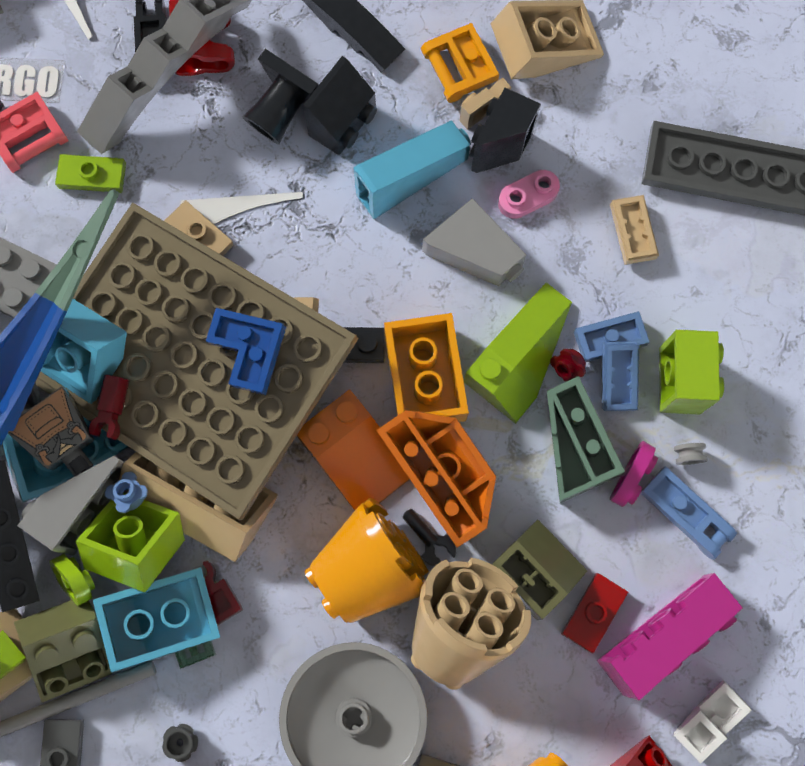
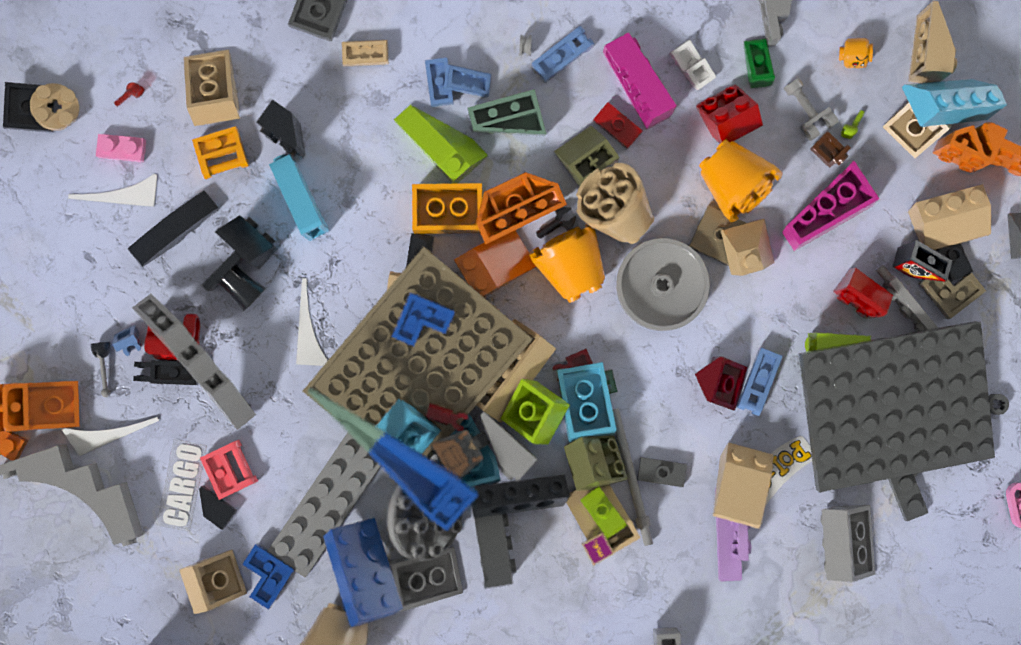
camera: 80 degrees left, 10 degrees up
(72, 580) = (553, 454): lime plate -> none
(90, 173) = (267, 425): lime plate -> none
(132, 499) = (511, 411): medium blue plate -> none
(170, 746) = (657, 400): dark grey plate -> none
(198, 227) = (321, 352): tan plate -> none
(475, 245) = (362, 161): light grey slope -> none
(476, 105) = (257, 145): tan plate -> none
(530, 193) = (327, 119): bright pink plate -> none
(569, 364) = (455, 113): dark red plate -> none
(627, 487) = (527, 79): dark pink plate -> none
(690, 372) = (473, 34): lime brick -> none

